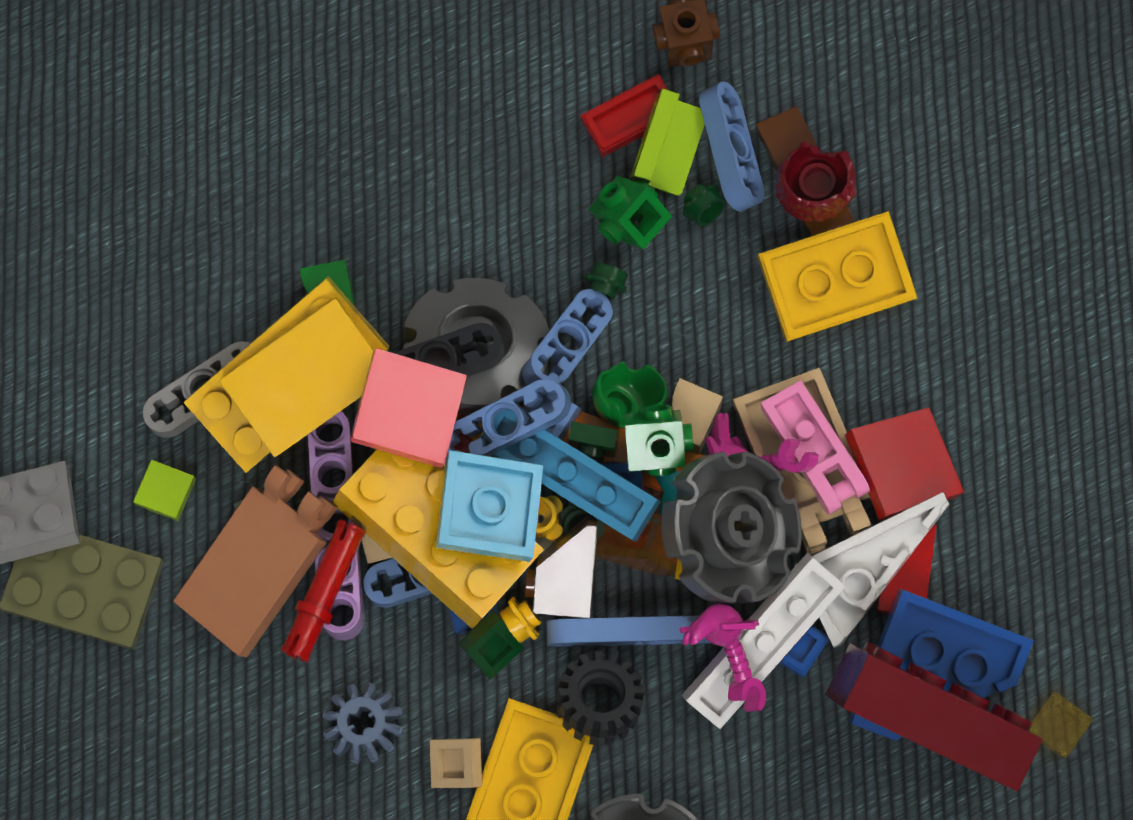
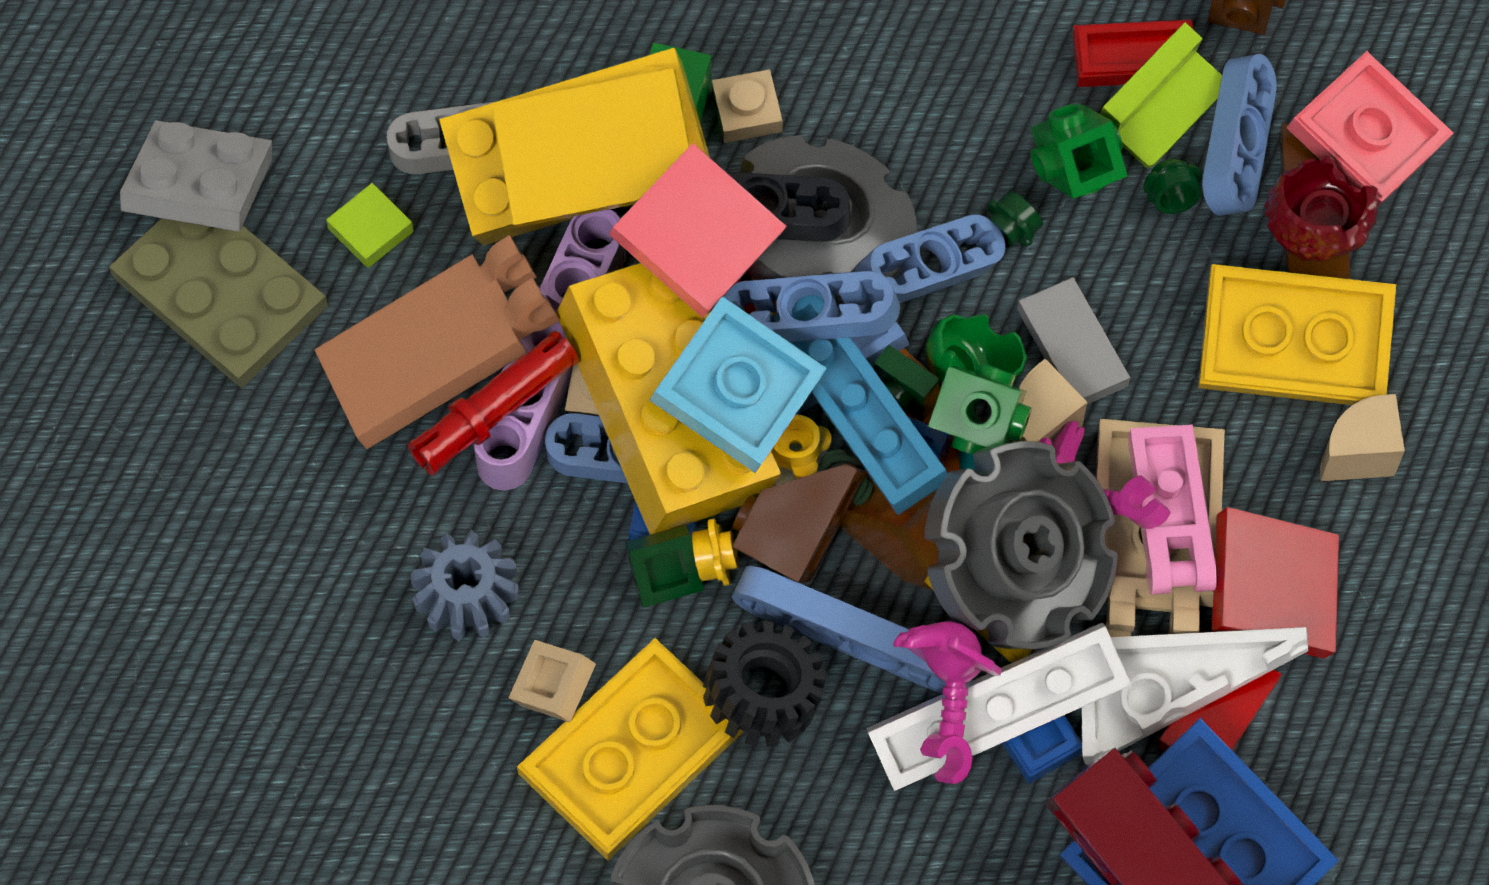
camera: 20 degrees right, 10 degrees down
(382, 279) = (747, 106): none -> tan plate
(688, 350) = (1073, 340): none -> light grey tile
(818, 101) = (1370, 127): none -> coral tile
(917, 333) = (1365, 441): none -> tan brick

